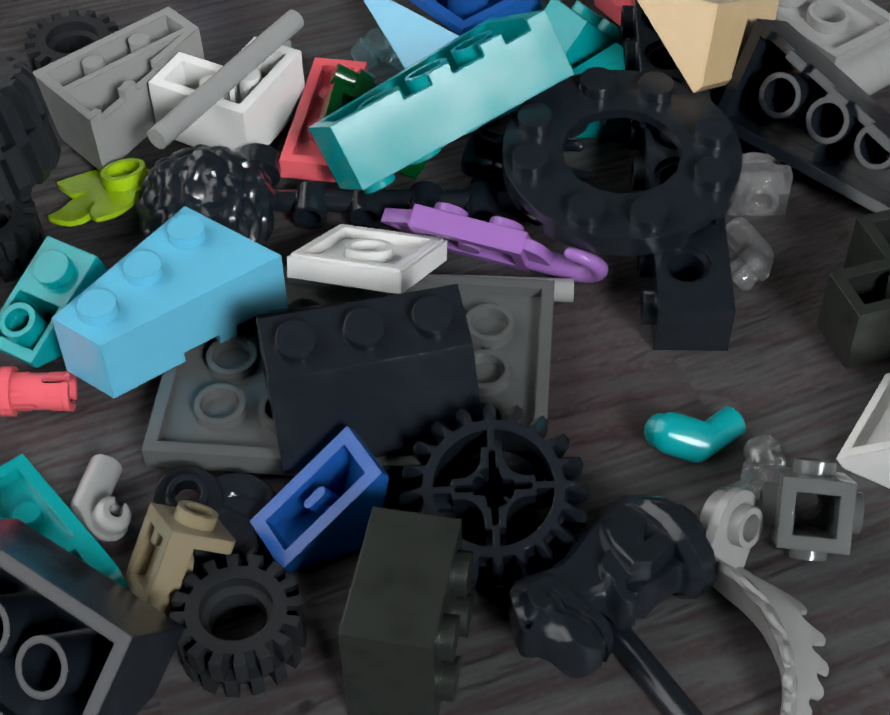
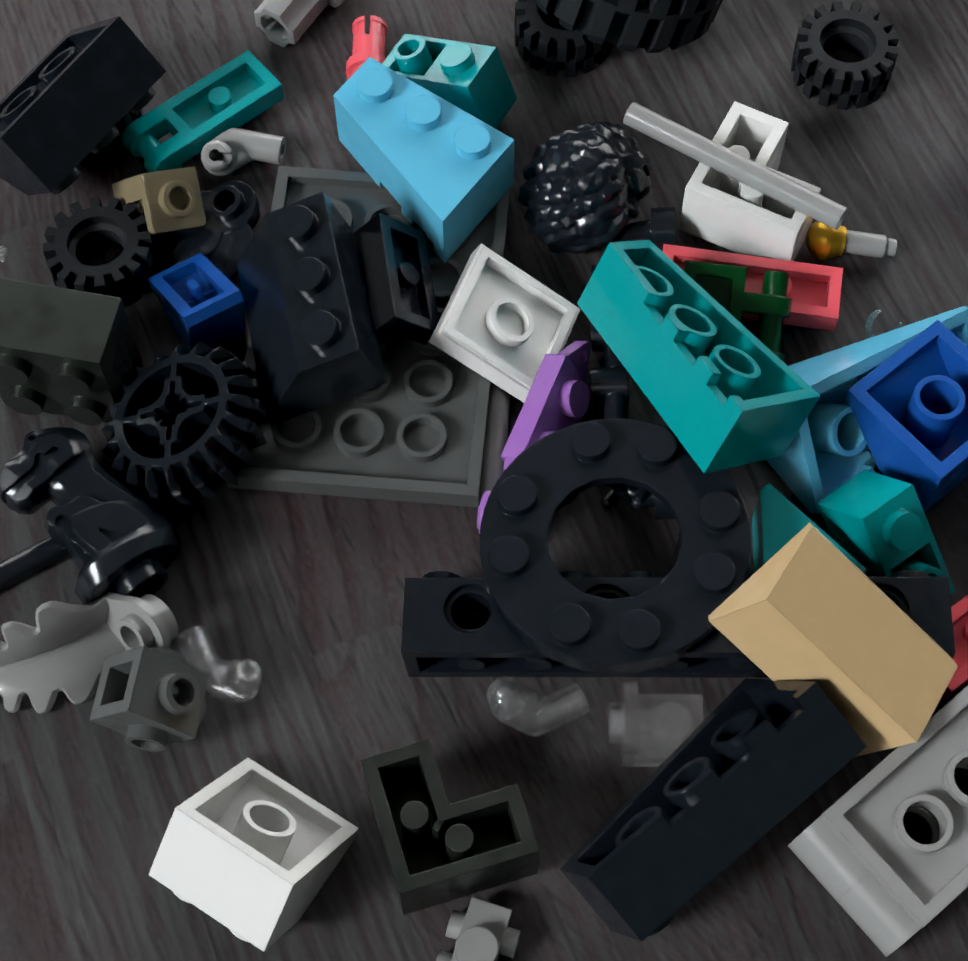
camera: 90 degrees right, 15 degrees up
(101, 193) = (608, 100): lime plate -> none
(102, 90) = (762, 68): light grey wedge -> none
(693, 438) = (272, 621): teal arm -> none

